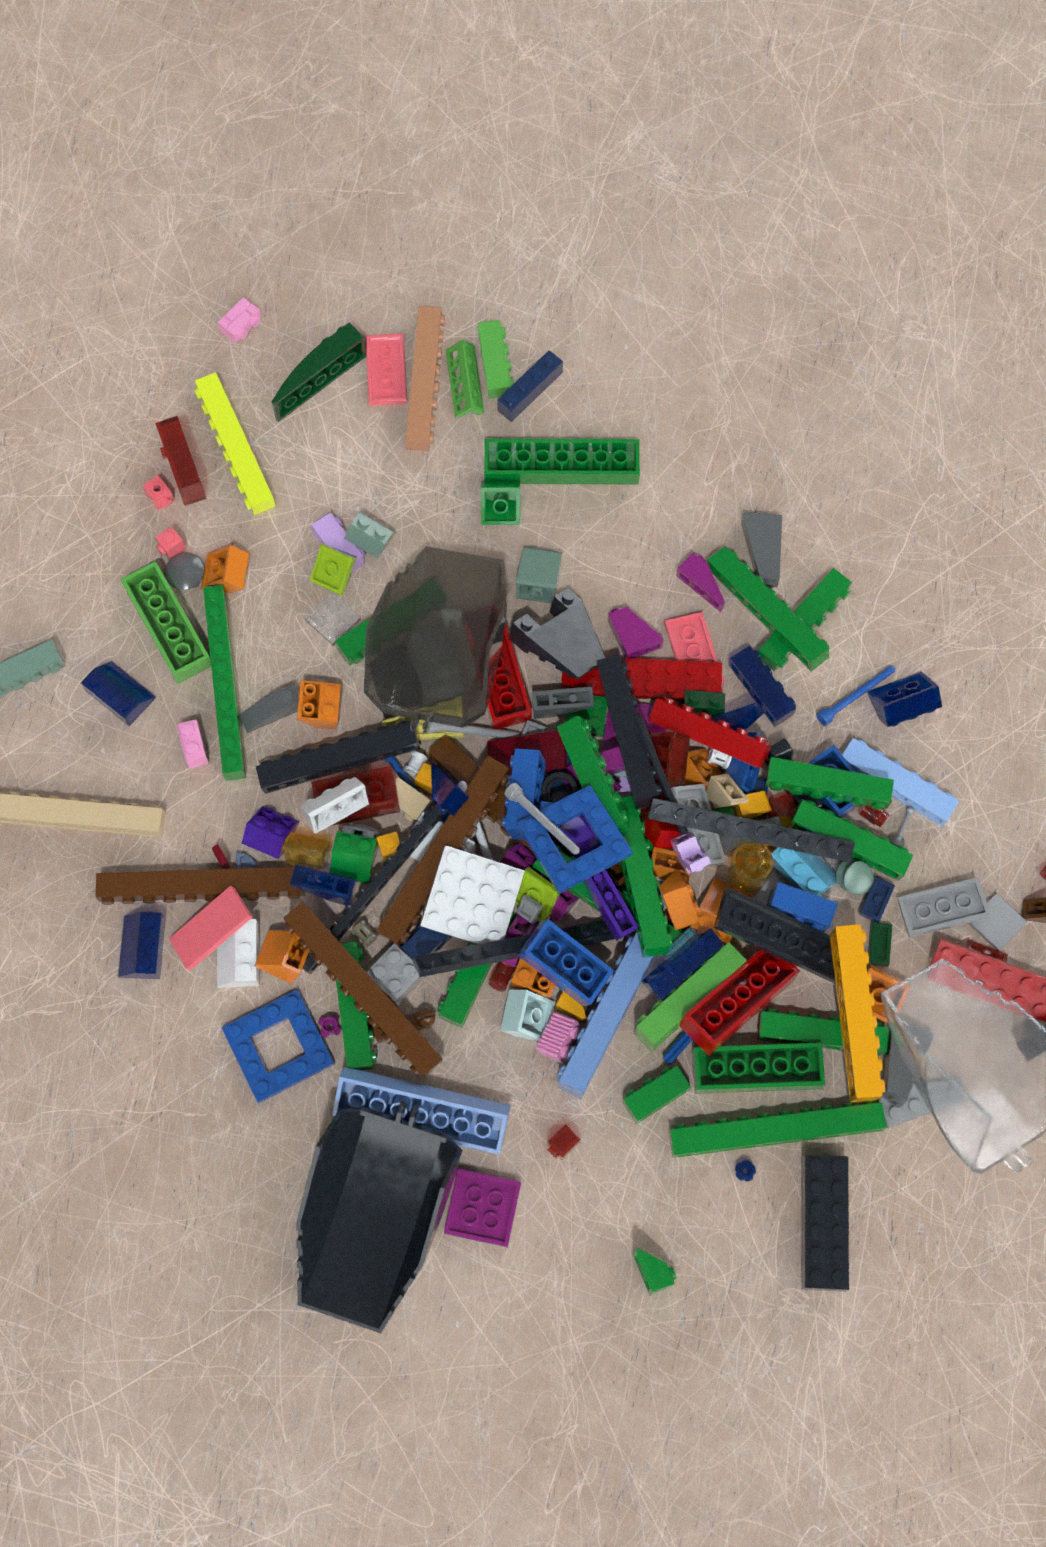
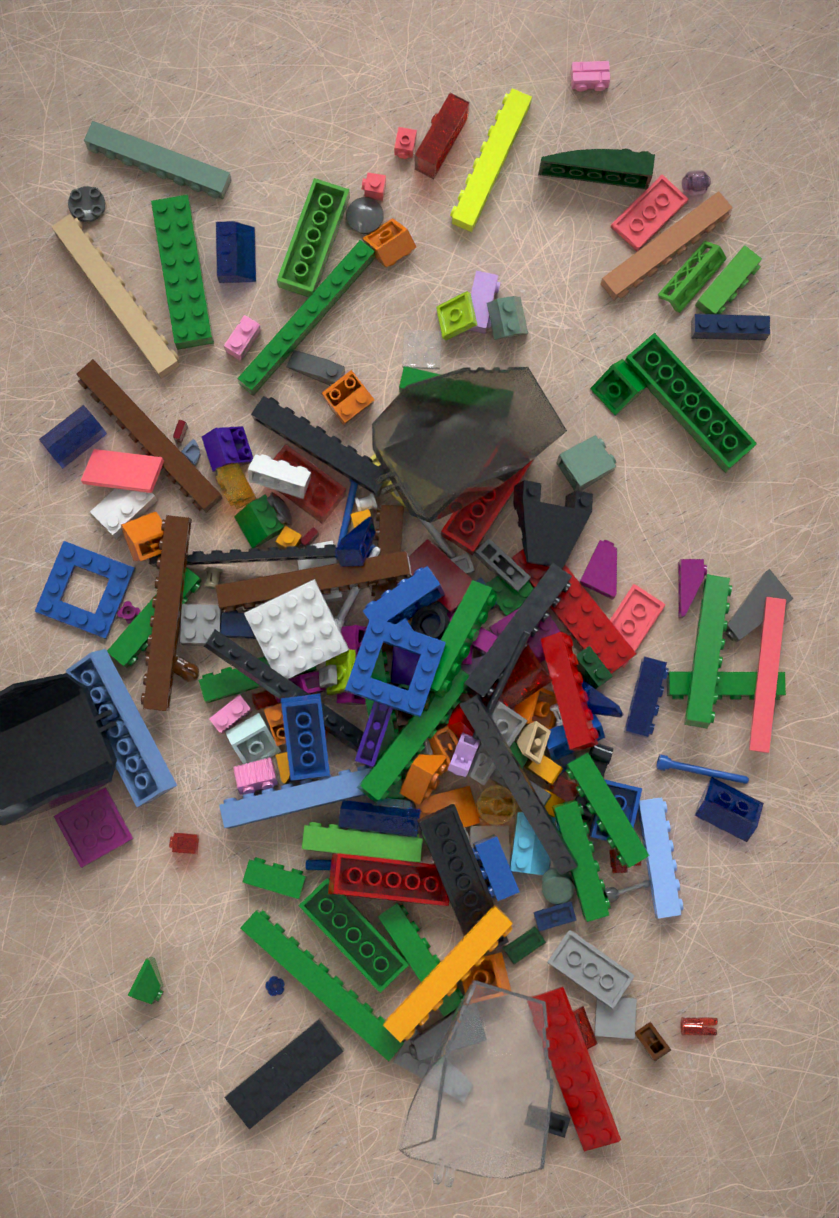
camera: 45 degrees right, 10 degrees up
(94, 744) = (182, 272): none -> green brick
(324, 885) = (220, 519): clear blue slope -> none
(395, 317) = (696, 182): none -> clear purple head
(402, 829) = (309, 537): none -> dark red tile
(411, 800) = (334, 524): tan slope -> none
(490, 1014) = (230, 714): none -> bright pink brick
(515, 794) = (391, 594): light grey piece -> none
(825, 581) = (767, 675): none -> coral tile

